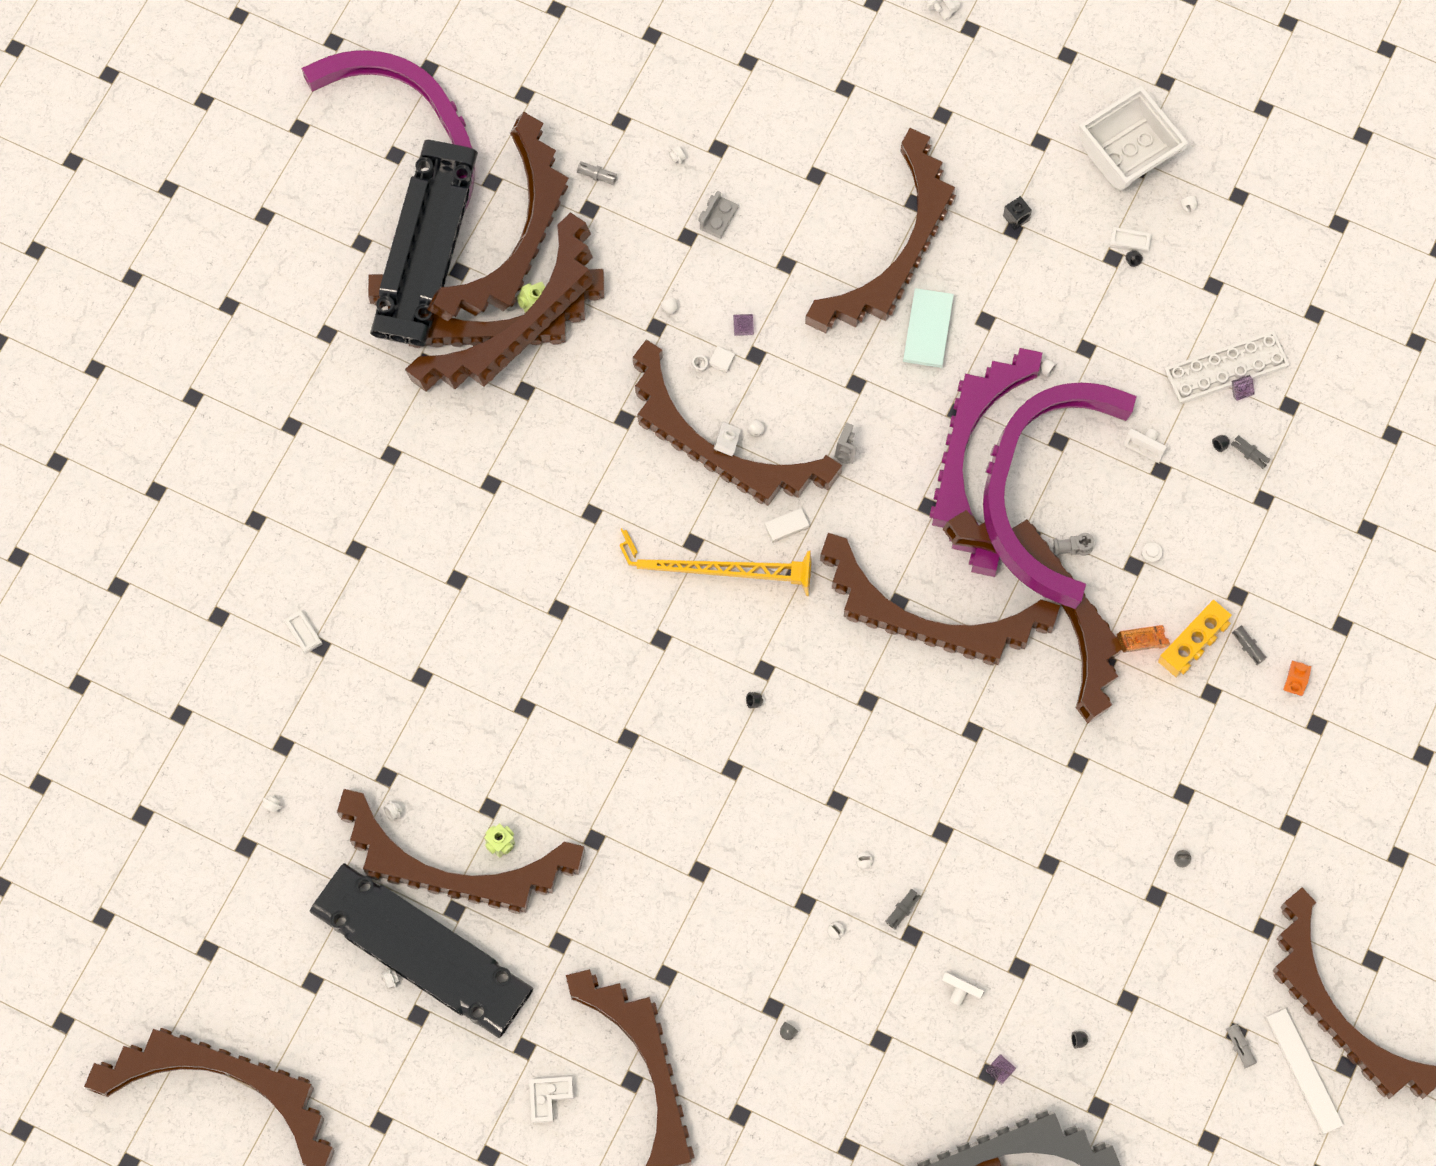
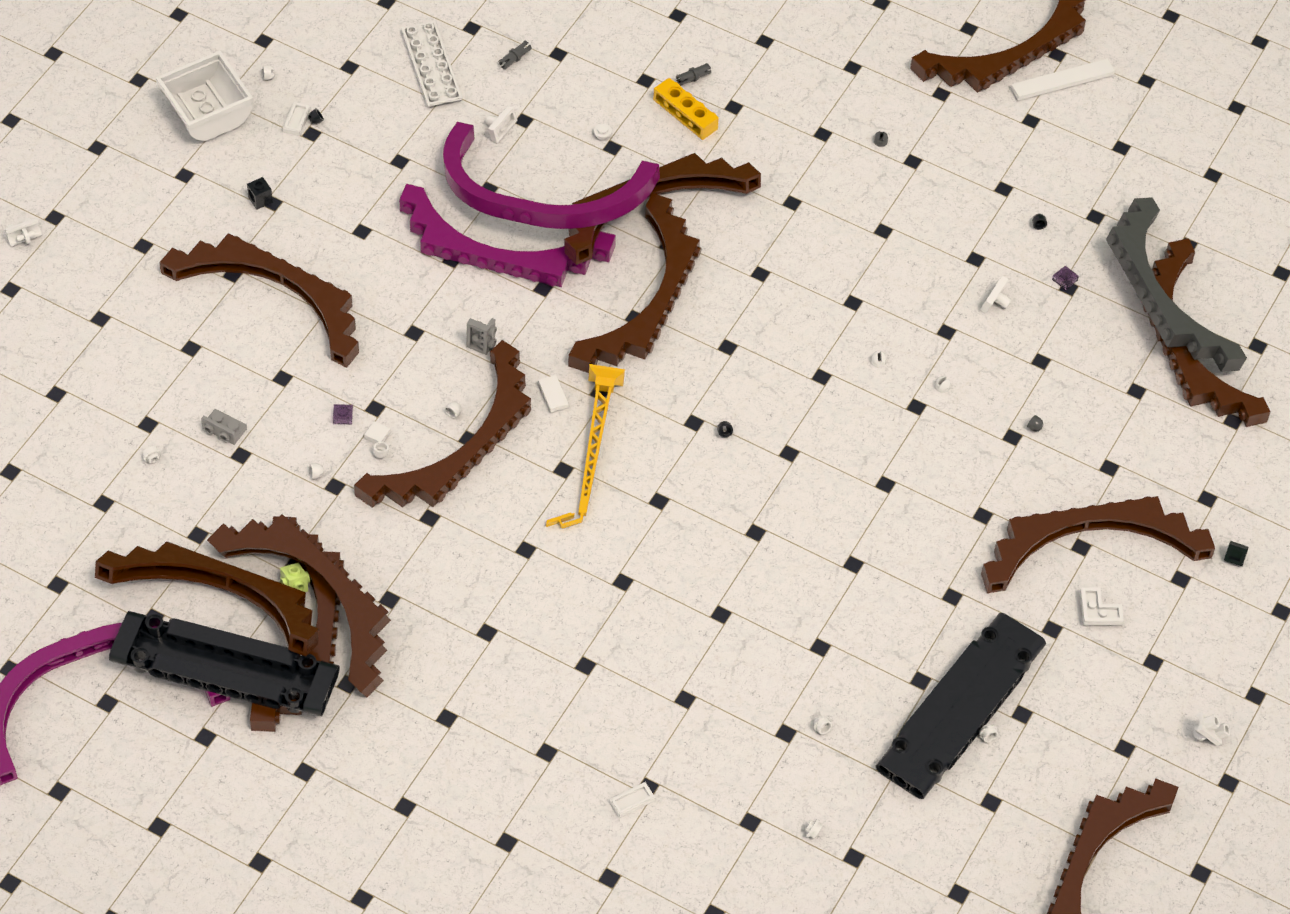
camera: 90 degrees left, 15 degrees down
(501, 846) = (856, 633): yellowish green brick -> none
(504, 890) = (873, 727): reddish brown arch -> none
(597, 173) = (160, 523): light grey pin -> none
(727, 439) = (465, 428): white plate -> none
(903, 909) = (924, 332): dark grey pin -> none
(928, 328) = (366, 270): light aqua tile -> none
(1074, 545) = (592, 179): light grey connector -> none
(1143, 639) = (686, 140): clear orange plate -> none
(1221, 442) = (504, 74): black hinge -> none
(1241, 1046) = (1053, 113): light grey pin -> none
(1243, 387) = (453, 52): clear purple plate -> none
(1297, 678) = (724, 44): orange bracket -> none

